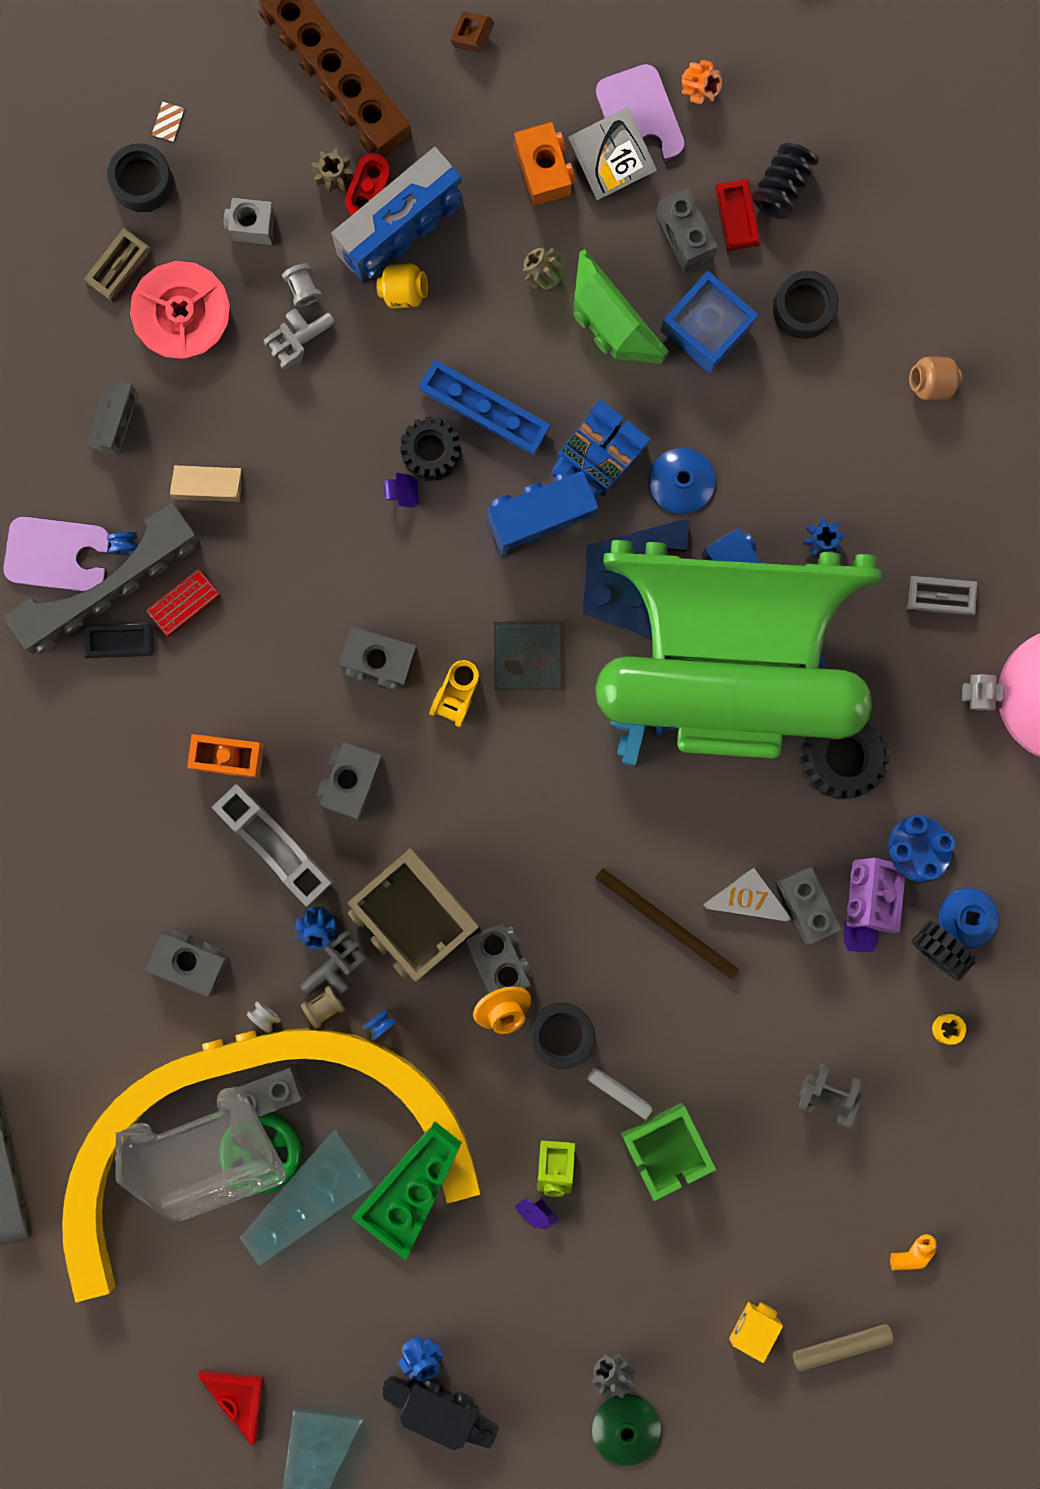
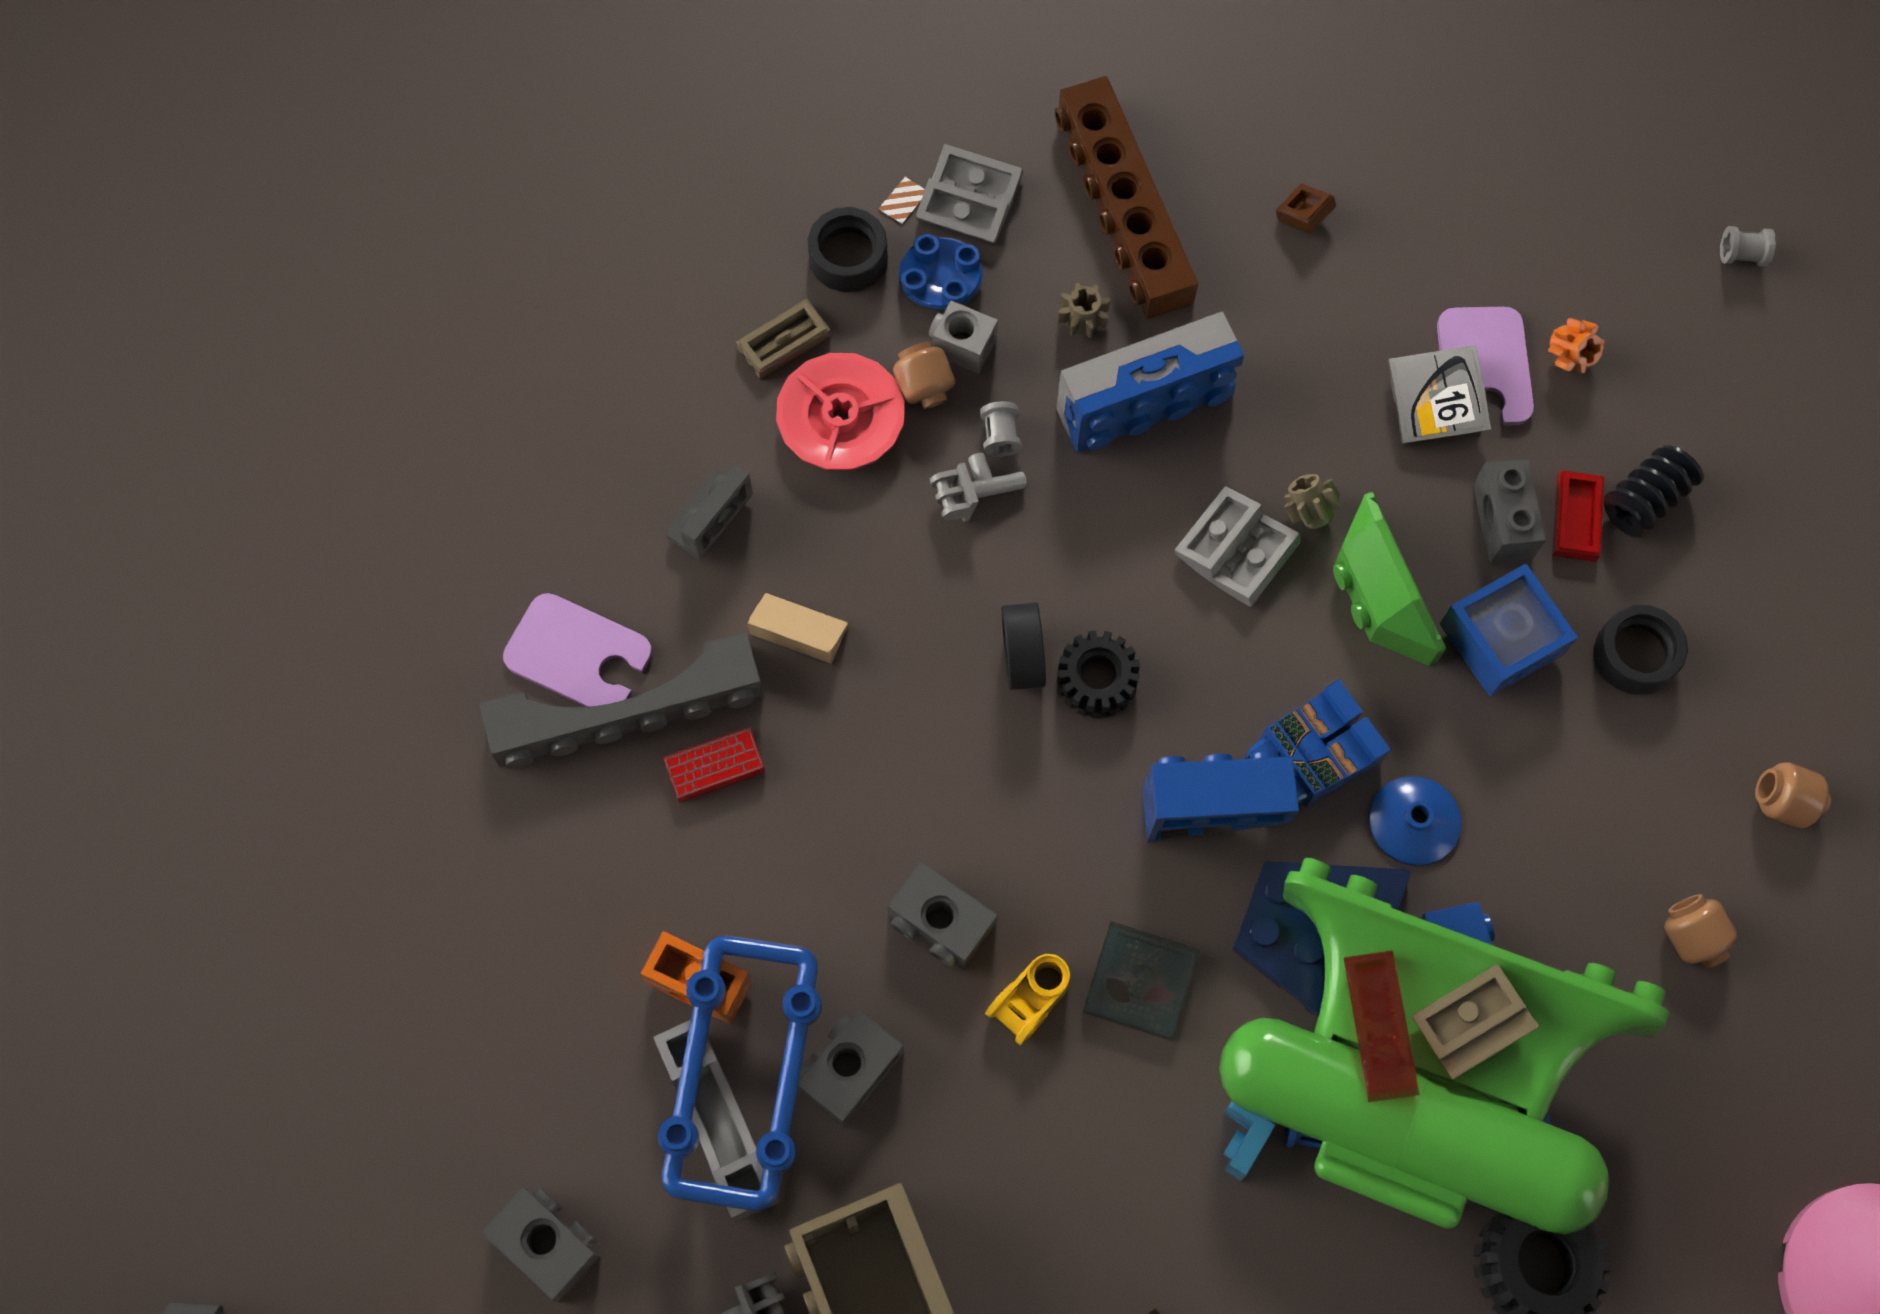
camera: 25 degrees right, 15 degrees down
(117, 640) = (613, 784): black tile -> none
(122, 543) = (664, 663): blue bush -> none
(216, 101) = (969, 194): none -> light grey slope
(216, 173) = (940, 272): none -> blue dish
(231, 261) = (924, 375): none -> medium nougat head
(237, 766) = (775, 1149): none -> blue bar
(316, 928) = (734, 1255): blue gear -> none
(364, 187) = (1114, 333): red plate -> none
(371, 447) = (1023, 646): none -> black tyre
(402, 286) = (1126, 467): yellow head -> none
(403, 490) = (1044, 713): dark purple piece -> none
(484, 407) = (1184, 646): blue plate -> none
(500, 318) = (1237, 546): none -> light grey slope
(542, 183) = (1342, 403): orange brick -> none
(694, 641) = (1381, 1026): none -> clear red plate
(755, 618) = (1475, 1021): none -> dark tan plate
(829, 531) = (1598, 946): blue gear -> none
(894, 496) = (1700, 931): none -> medium nougat head
(913, 593) = (1694, 1072): light grey tile -> none
(983, 692) = (1762, 1239): light grey gear -> none

